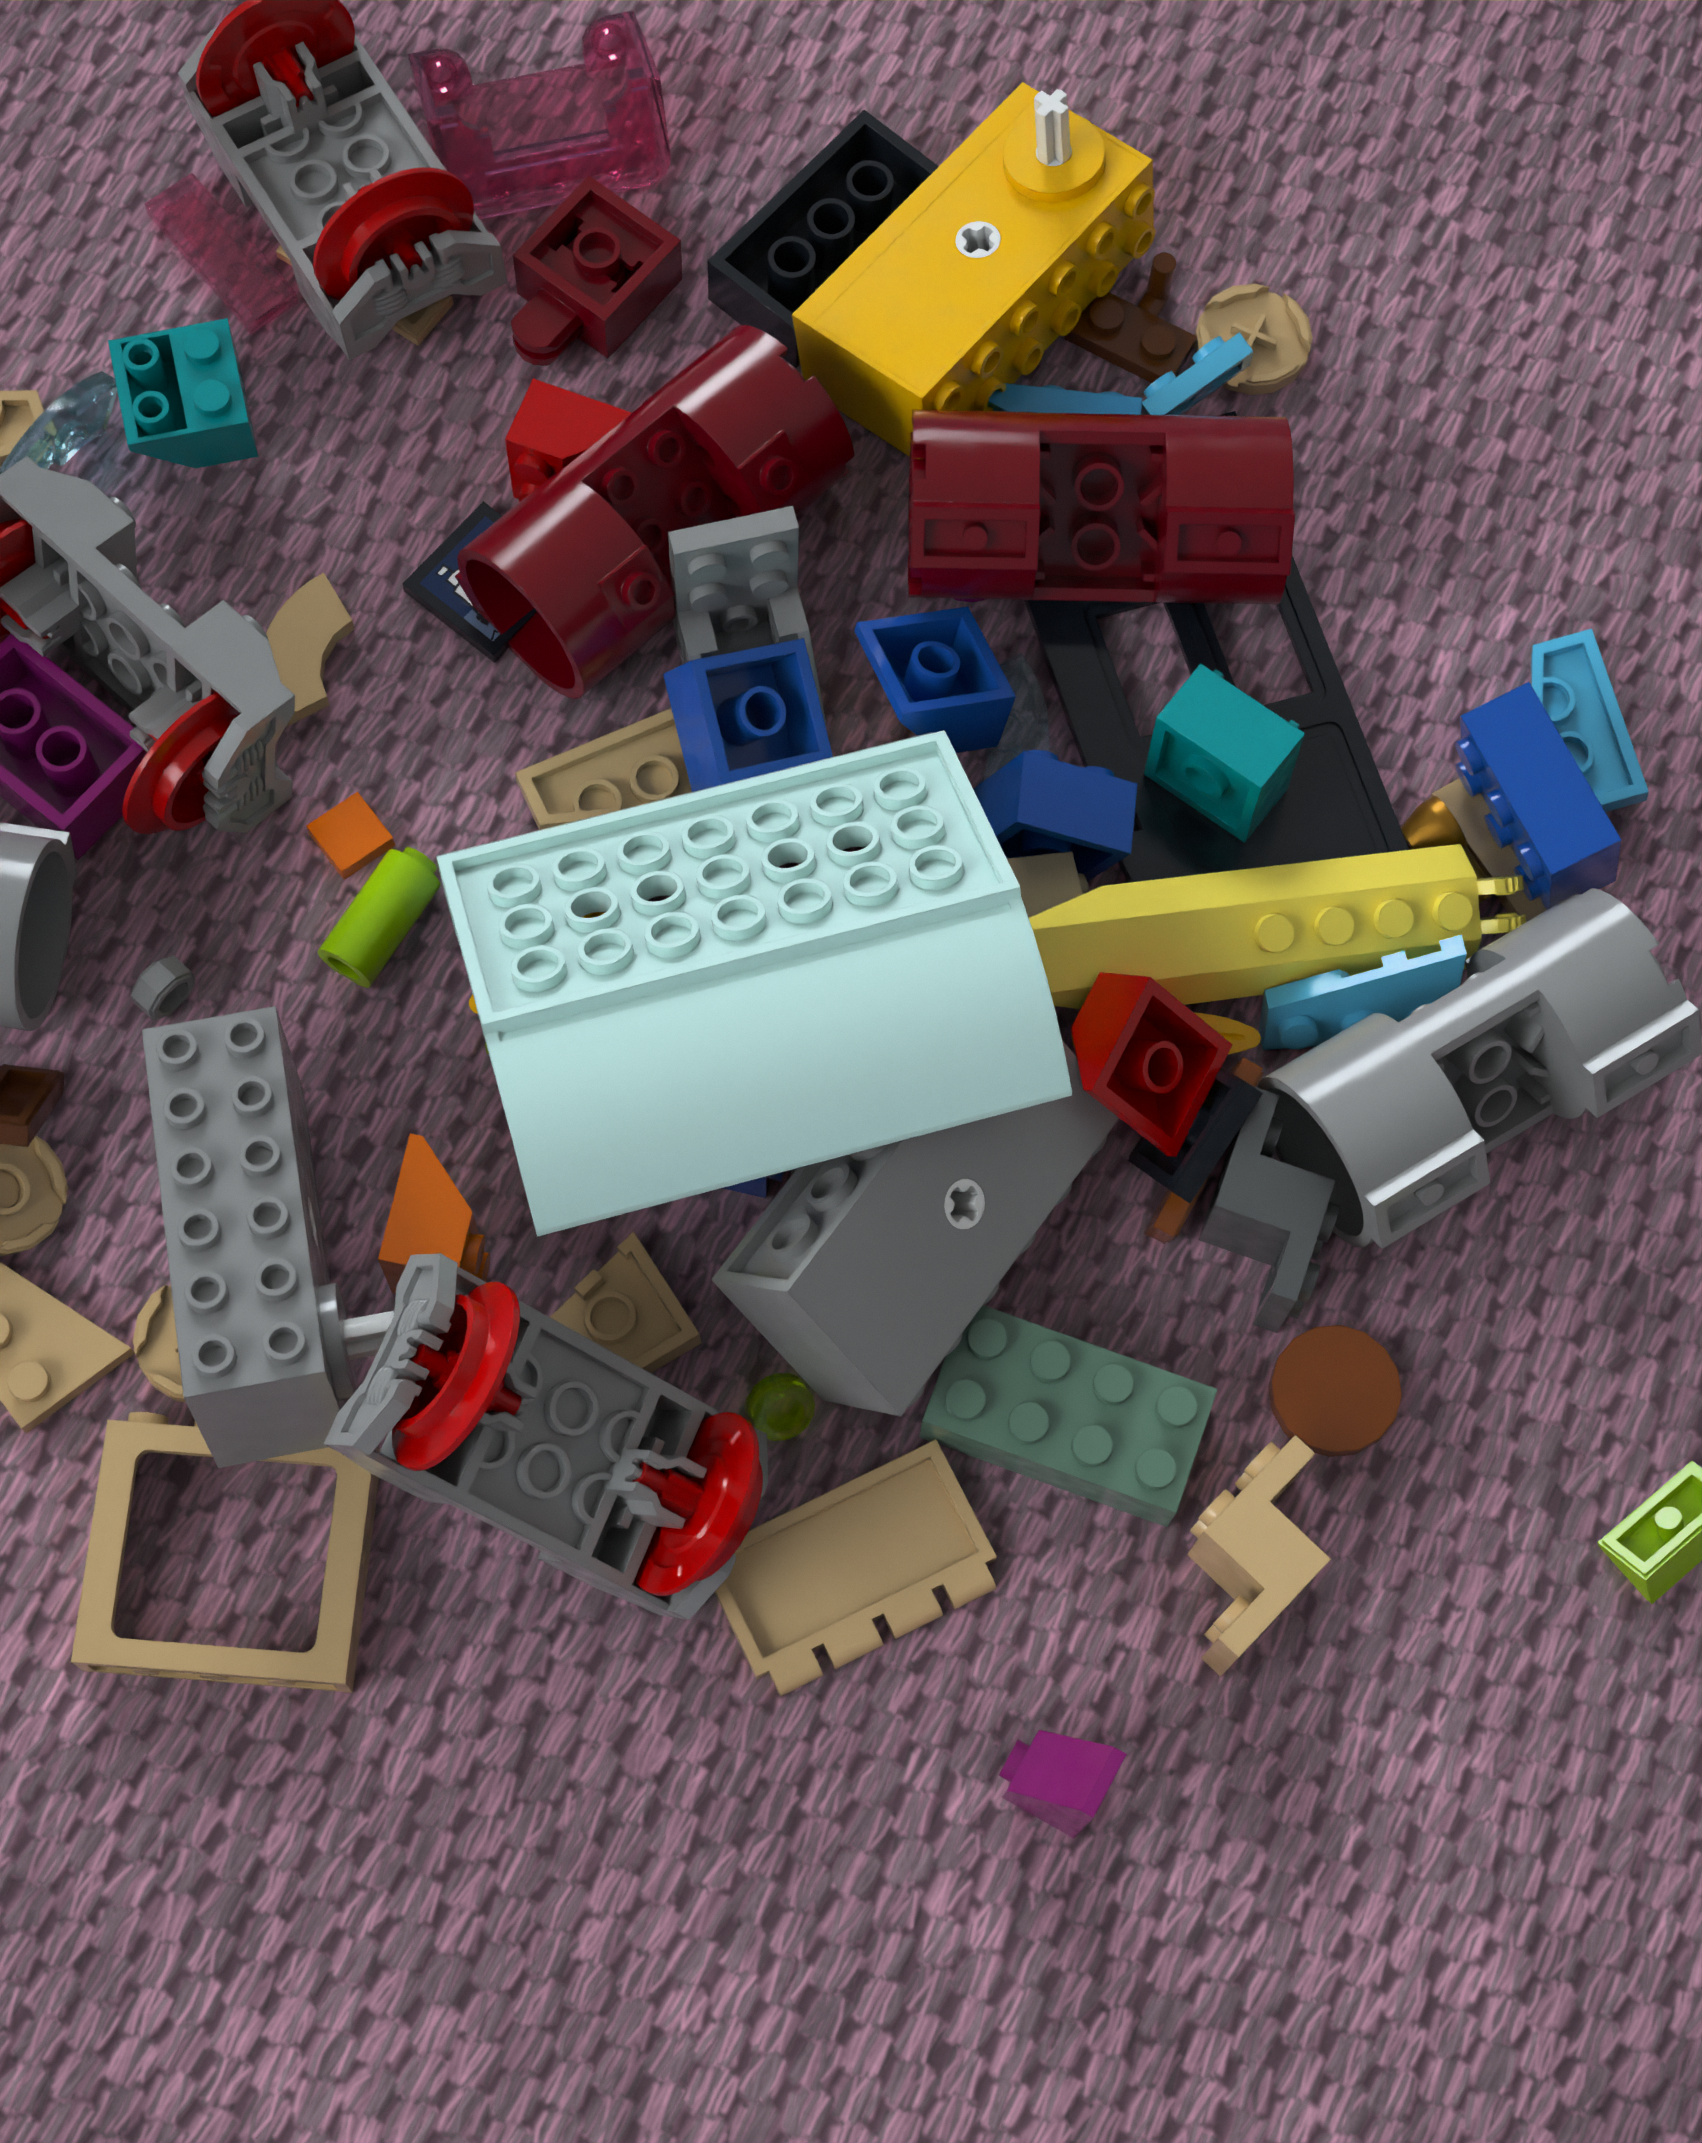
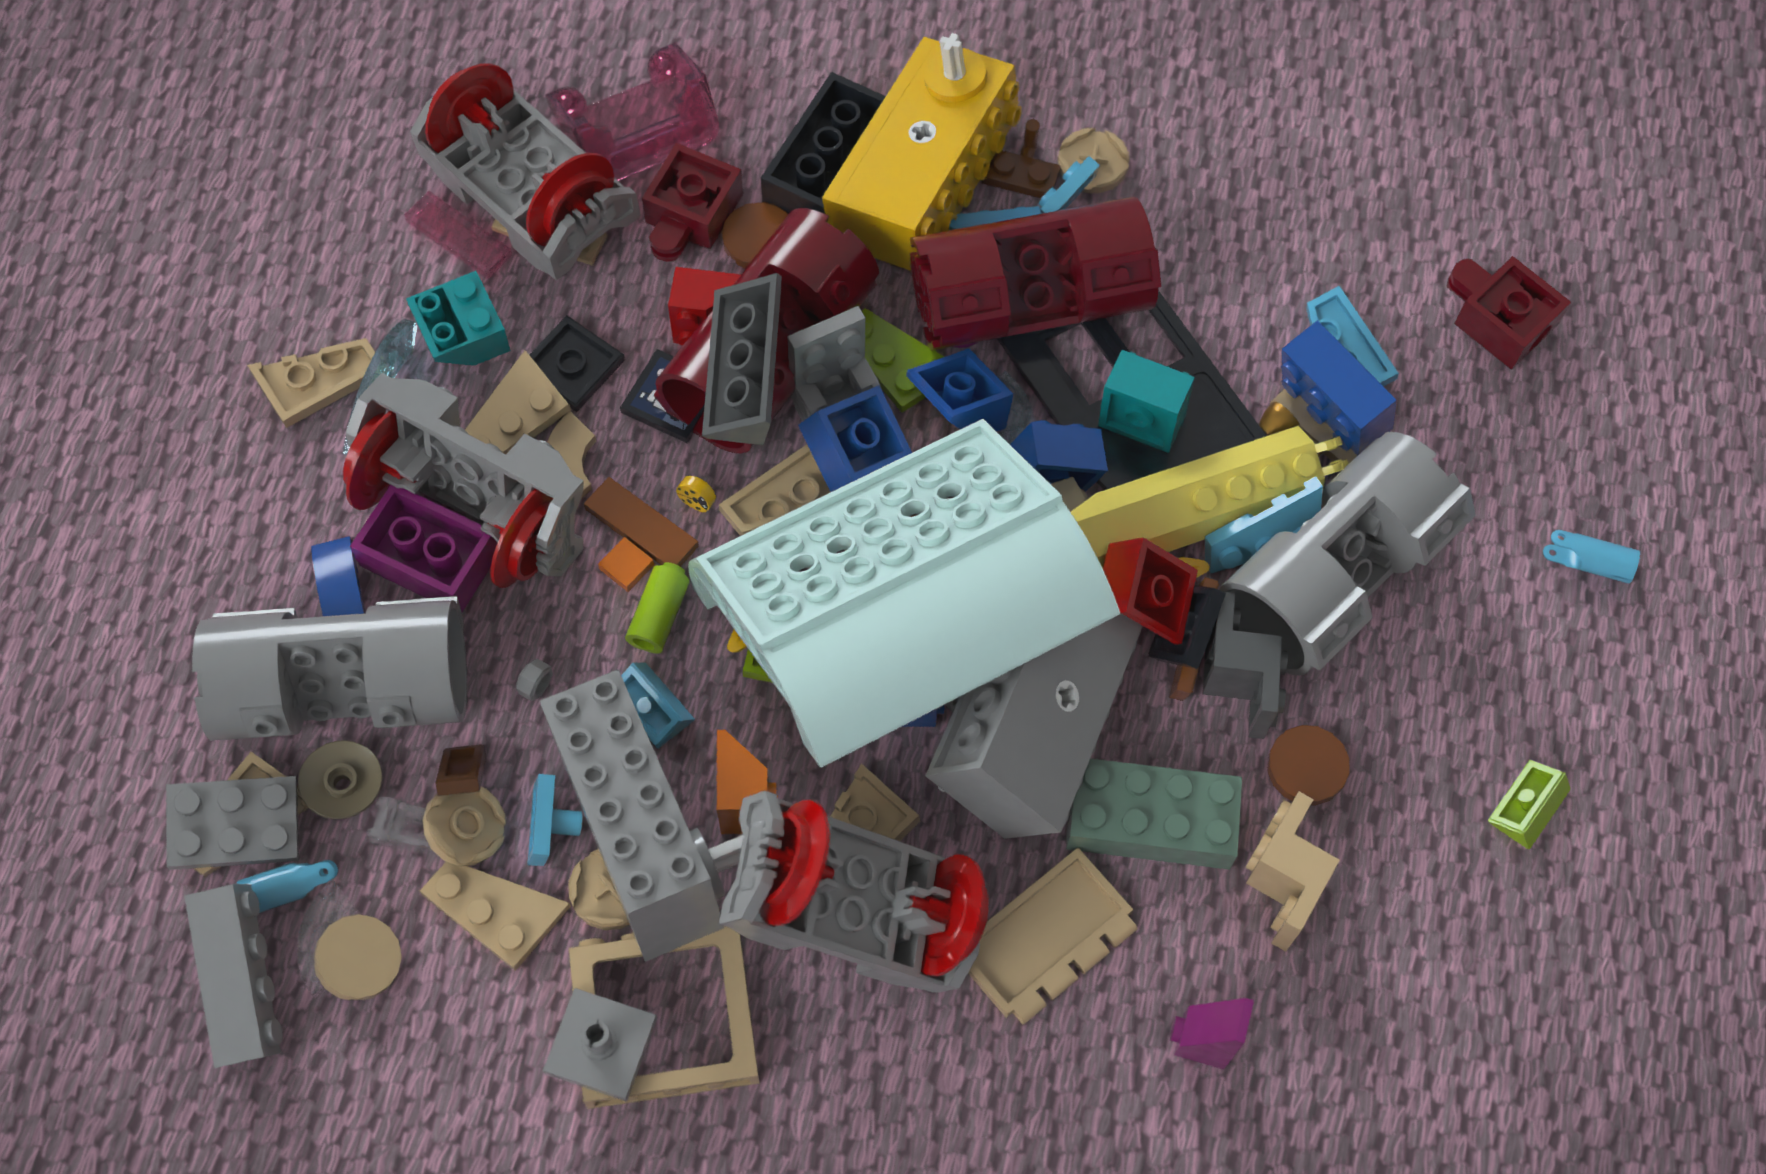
camera: 10 degrees left, 5 degrees down
(116, 1580) = (600, 1044): none -> light grey tile
(126, 1212) = (548, 820): none -> medium azure tile
(239, 554) = (519, 405): none -> tan wing
(335, 1064) = (655, 704): none -> medium azure slope
(346, 497) = (576, 361): none -> black tile
(389, 777) = (640, 524): none -> dark orange tile
(485, 746) = (696, 493): none -> yellow tile
(586, 556) = (742, 361): none -> dark grey slope
(674, 337) = (749, 229): none -> dark orange tile
(780, 1406) = (979, 845): clear neon green tile -> none
(845, 585) = (890, 355): none -> lime wing

